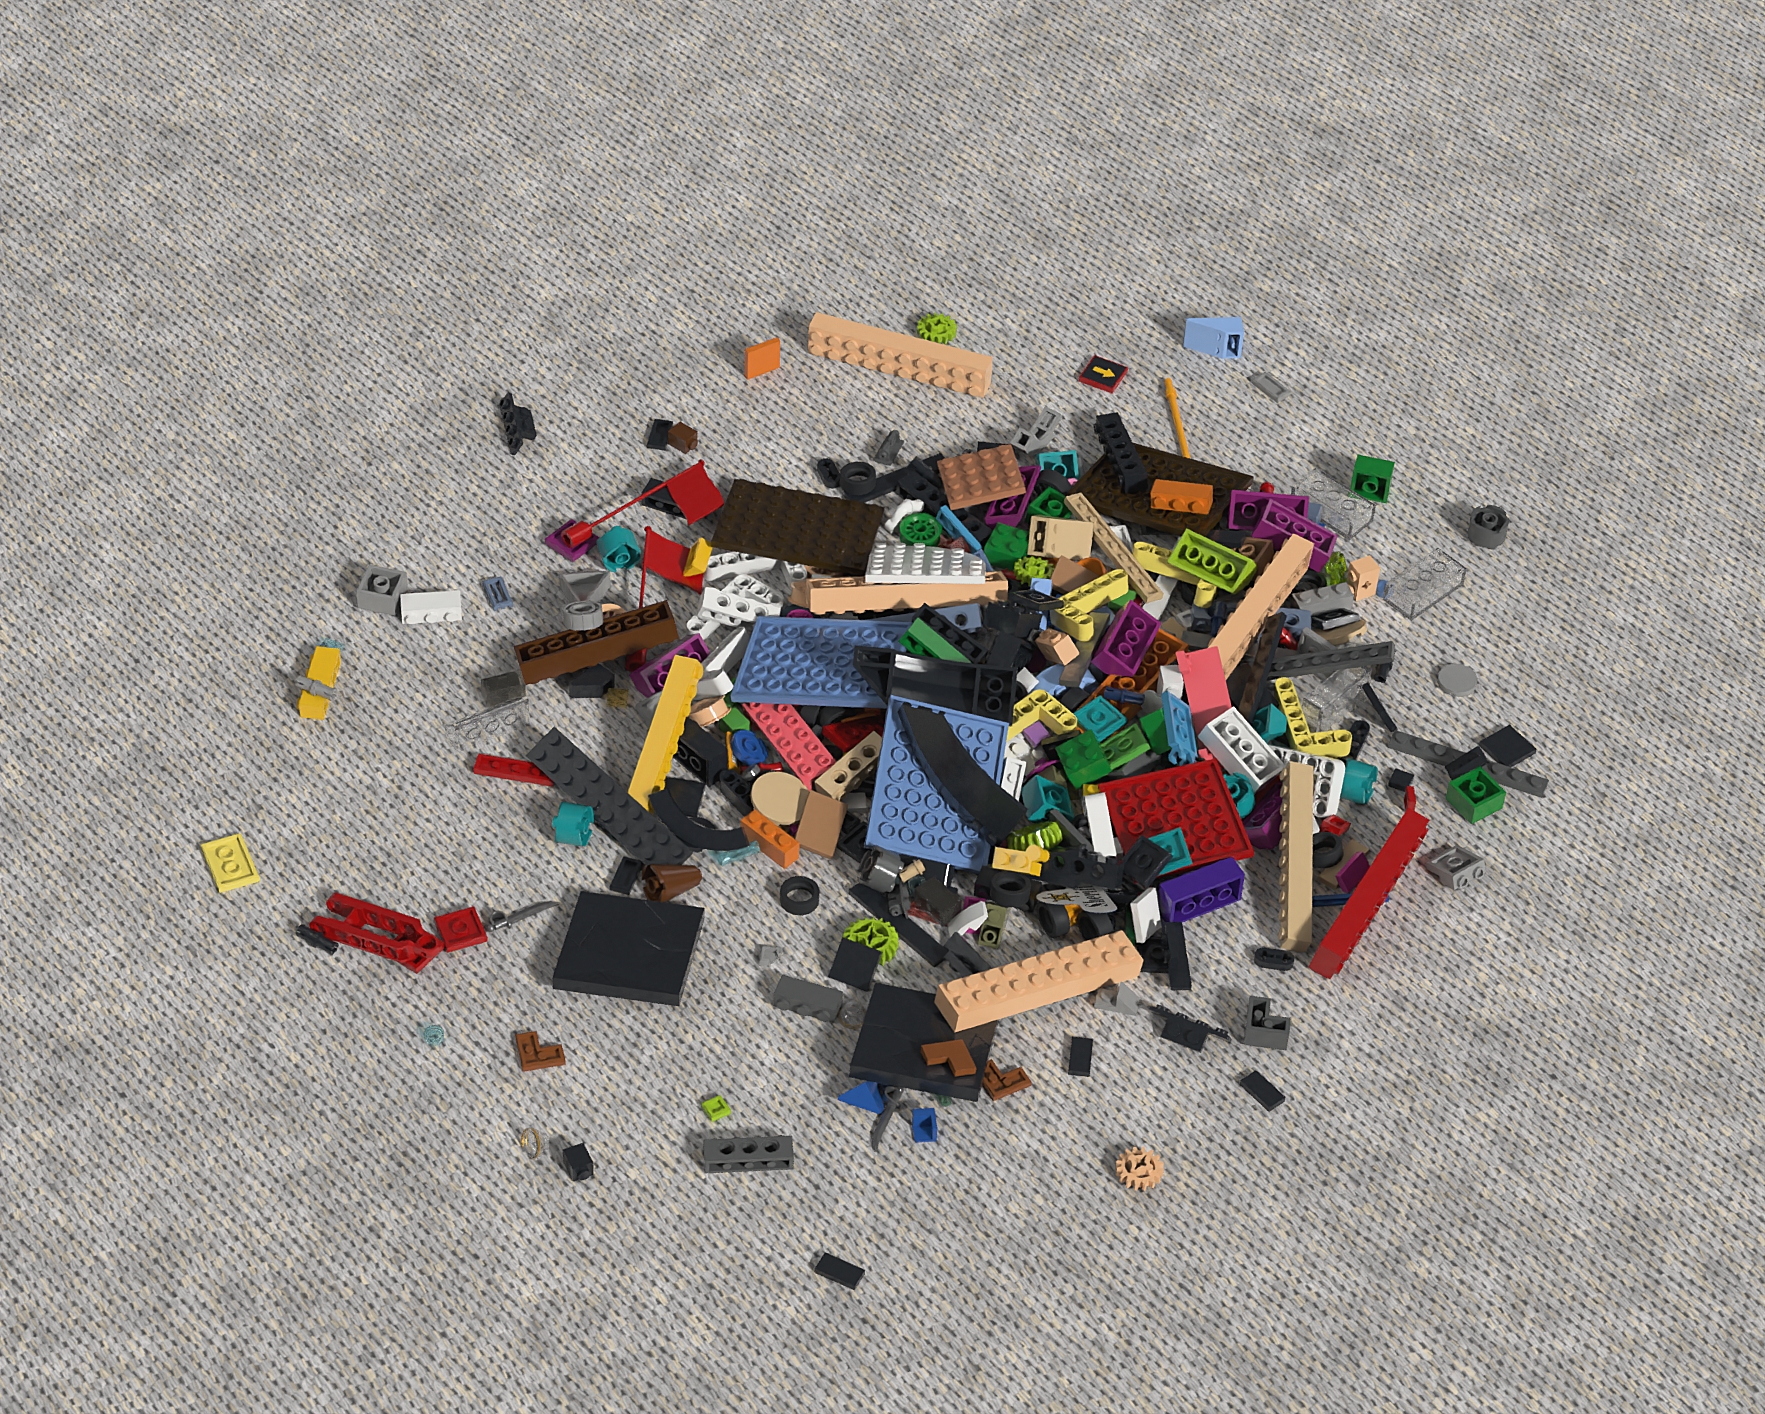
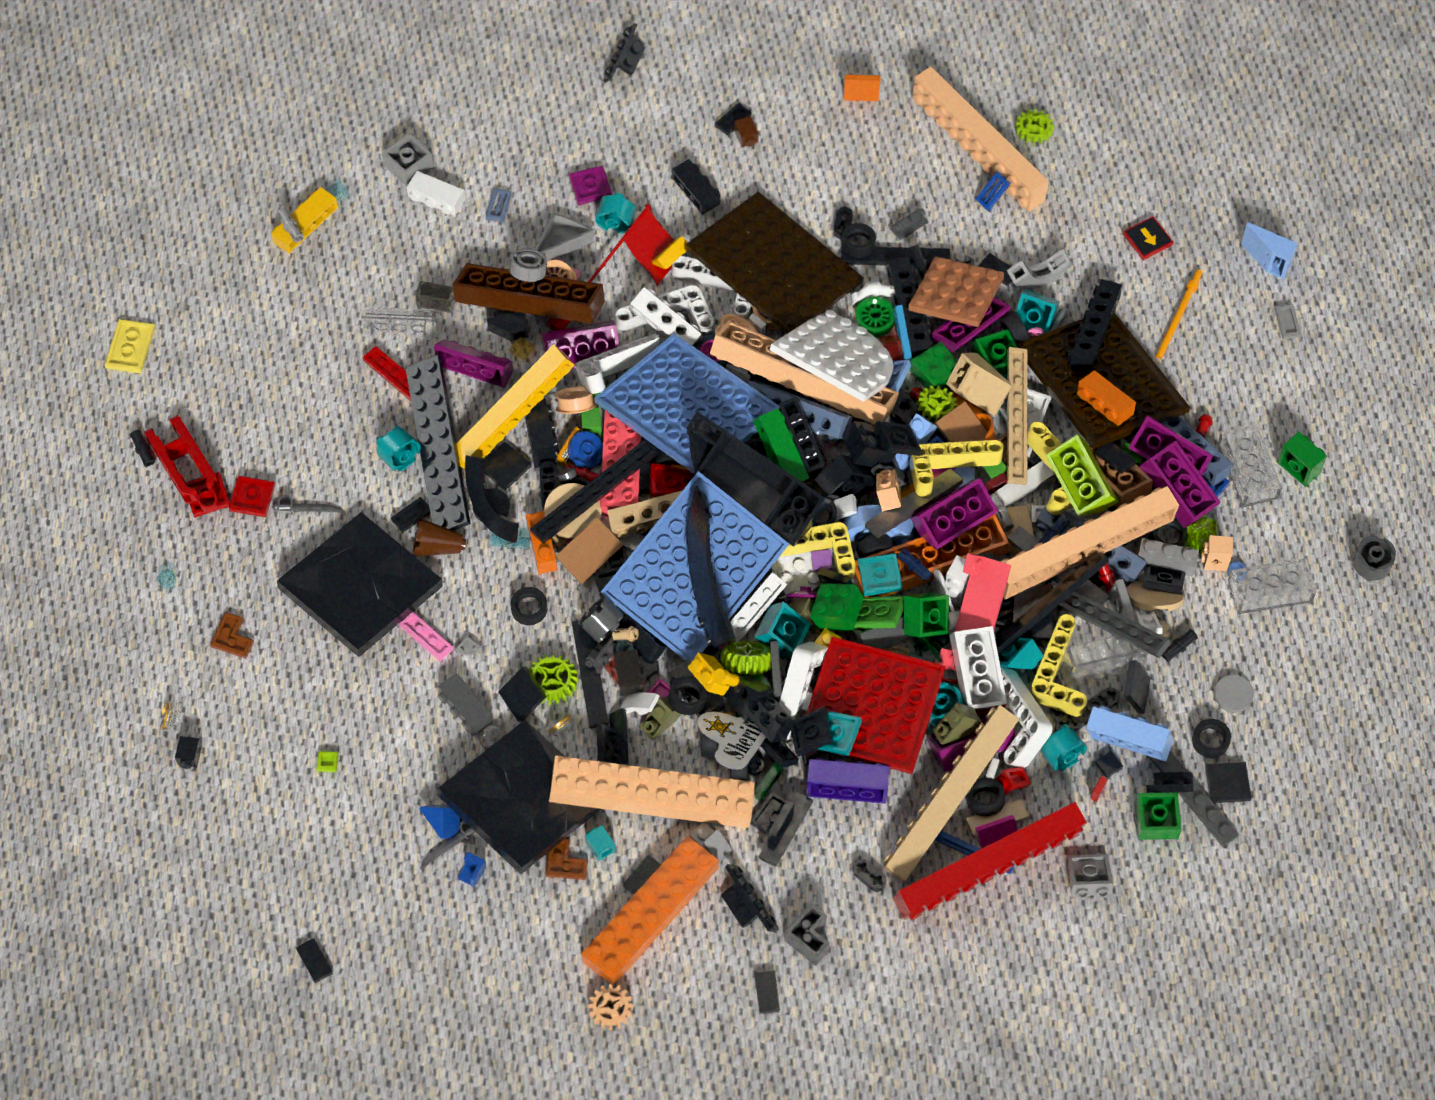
camera: 35 degrees right, 15 degrees up
(590, 725) = (474, 363): none -> magenta slope
(689, 490) = (710, 187): red flag -> none
(723, 965) = (426, 636): none -> bright pink tile
(748, 1154) = (342, 835): dark grey brick -> none
(791, 769) = (594, 491): none -> black tile
(912, 974) = (563, 727): none -> clear piece
(944, 391) = (1002, 180): none -> blue tile
(953, 1052) = (526, 820): dark orange tile -> none
(1022, 1047) = (600, 842): none -> teal brick
(1112, 1077) = (650, 911): none -> orange brick
(1145, 915) = (783, 779): white tile -> none
(1179, 729) = (932, 623): dark azure tile -> none
(1259, 801) = (957, 724): none -> olive slope
(1406, 741) = (1130, 733): none -> light blue brick
(1468, 731) = (1208, 751): none -> black tyre

